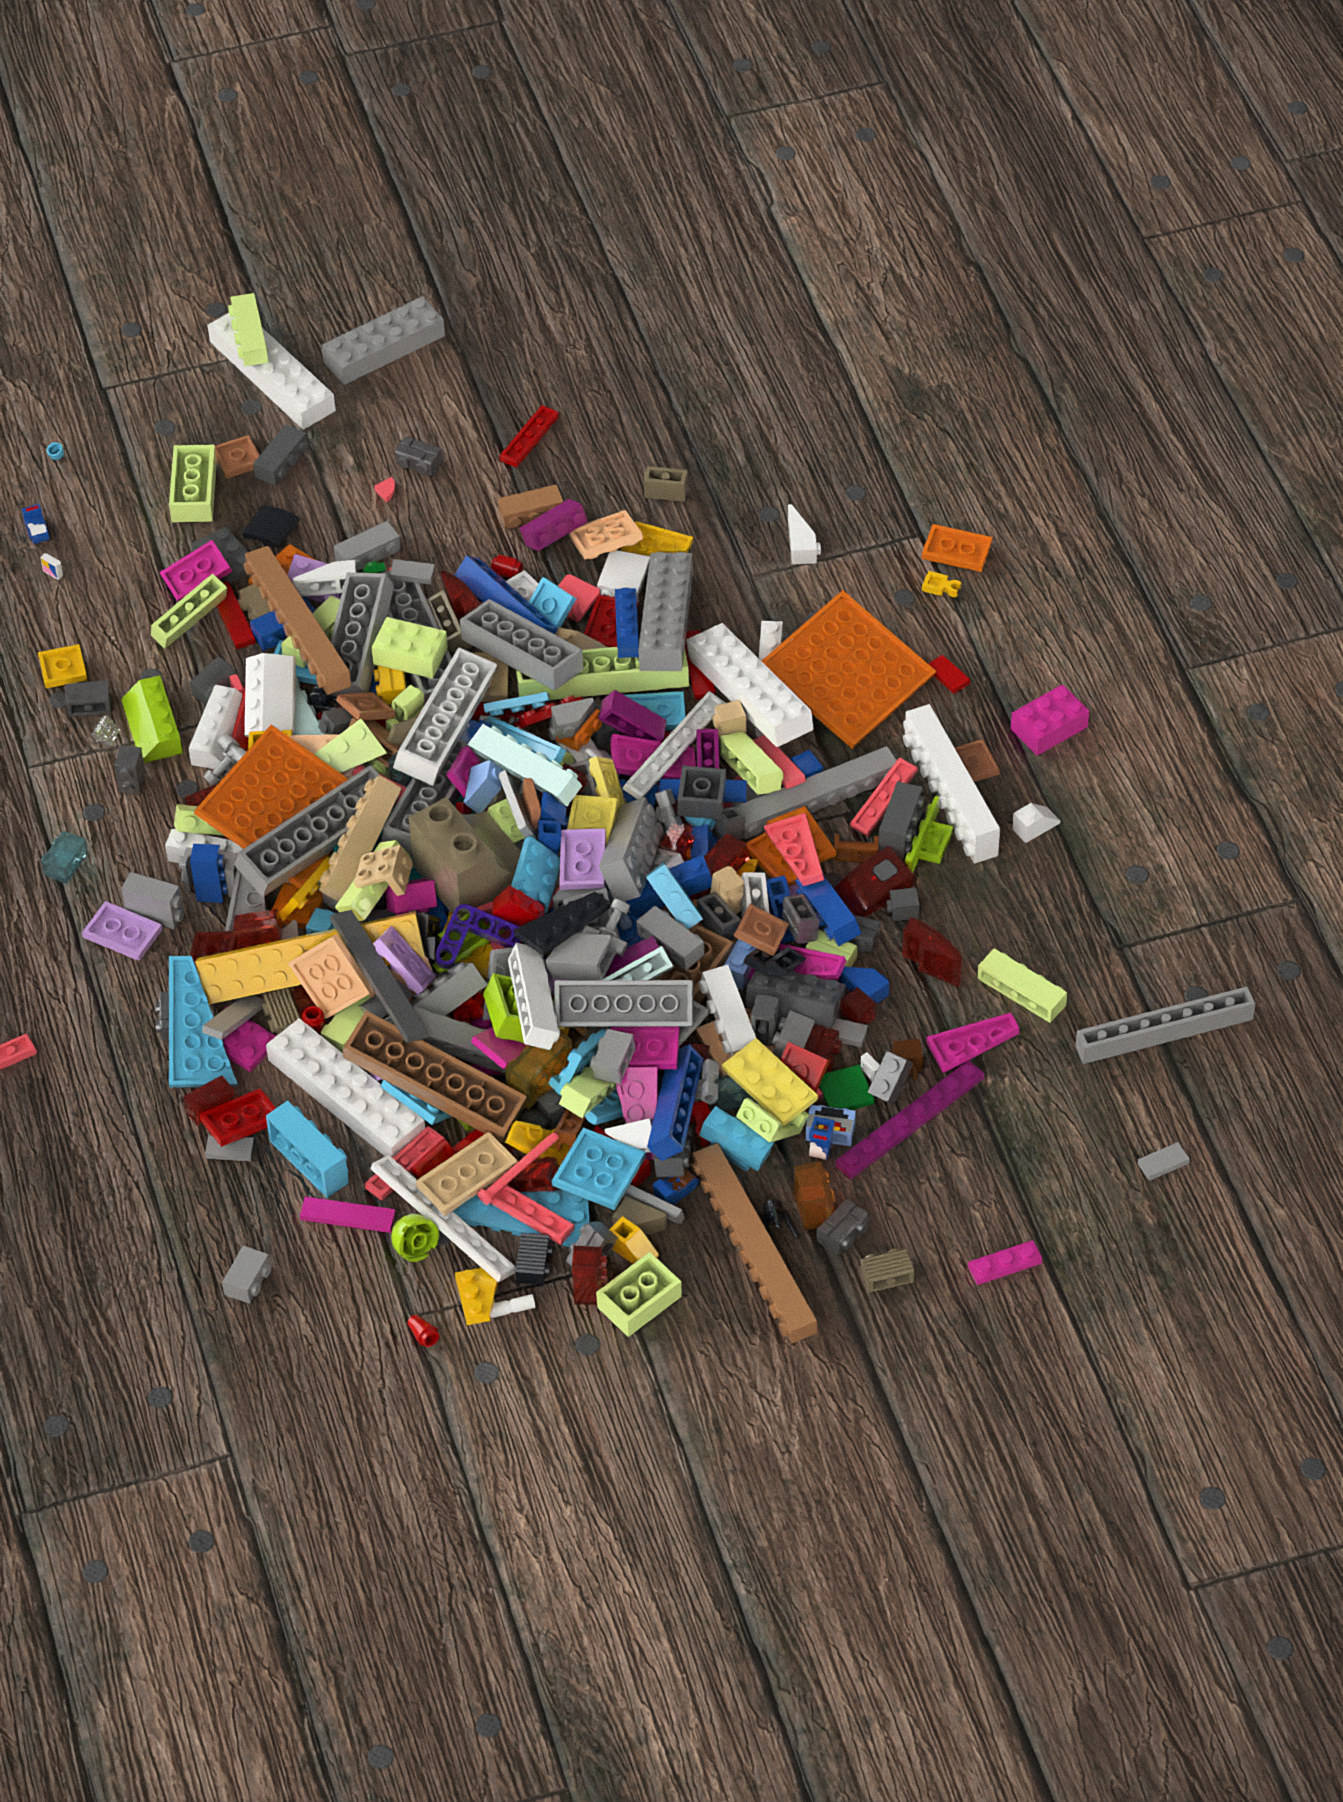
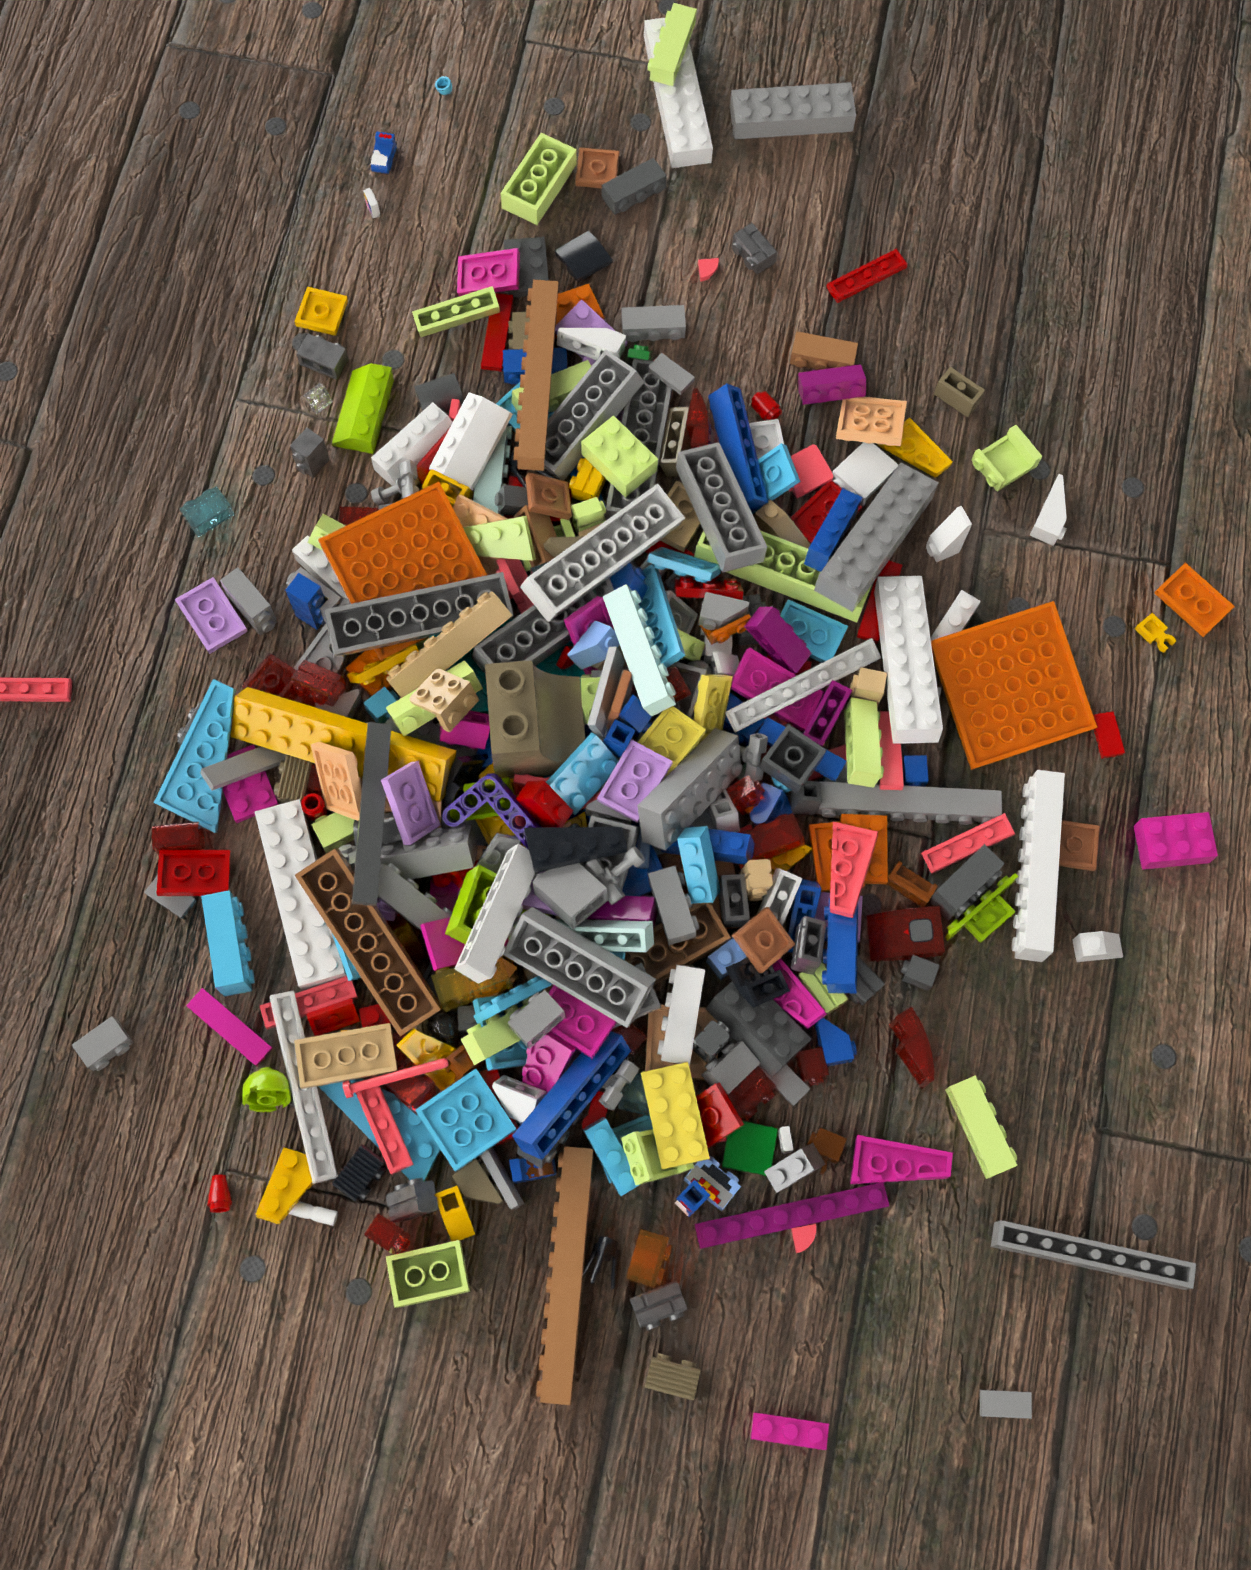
camera: 25 degrees right, 20 degrees up
(726, 587) = (949, 536): none -> white slope
(737, 515) = (1007, 459): none -> yellowish green panel
(929, 1129) = (803, 1237): none -> coral tile

